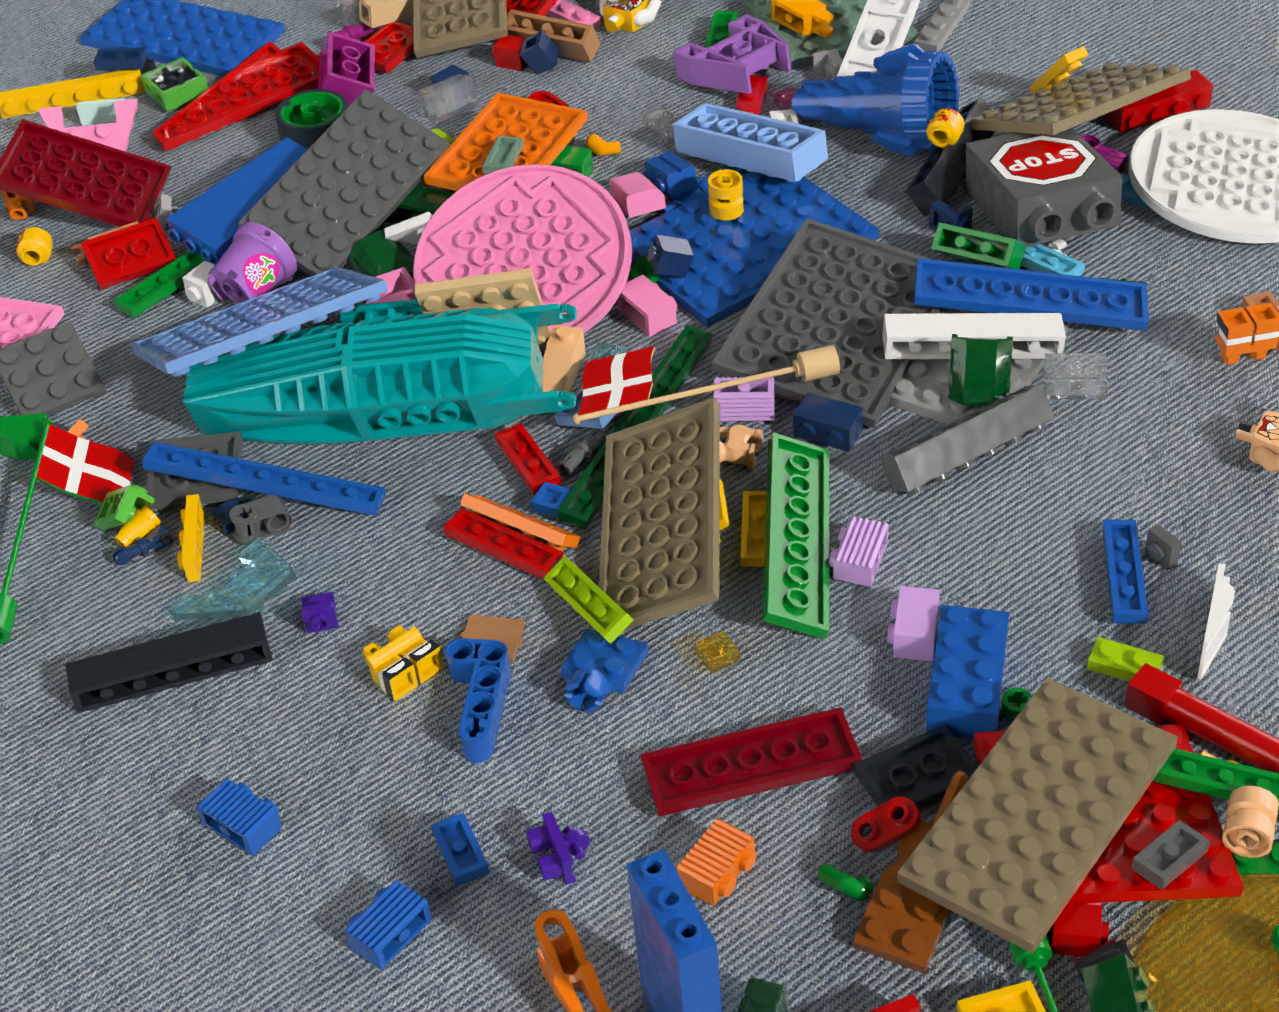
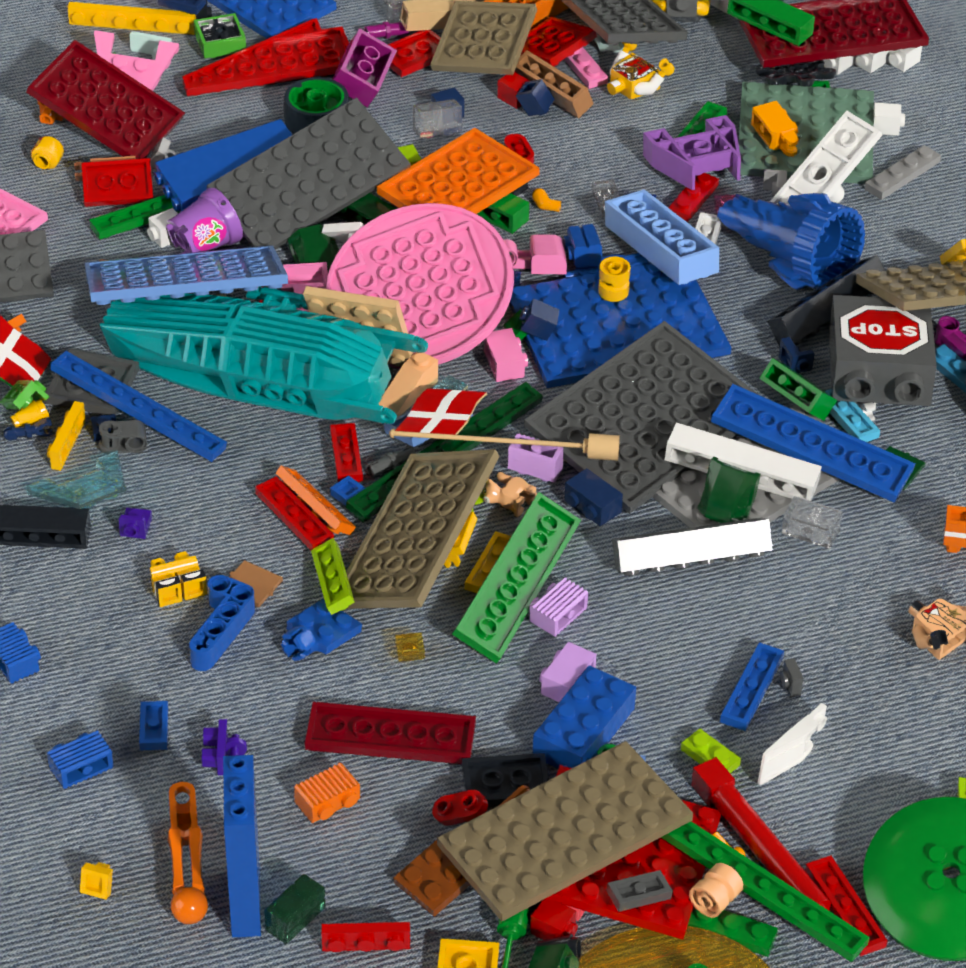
camera: 15 degrees right, 0 degrees up
(503, 154) = (448, 188): sand green tile -> none
(854, 888) = (406, 834): green arm -> none
(945, 127) = (825, 275): yellow head -> none

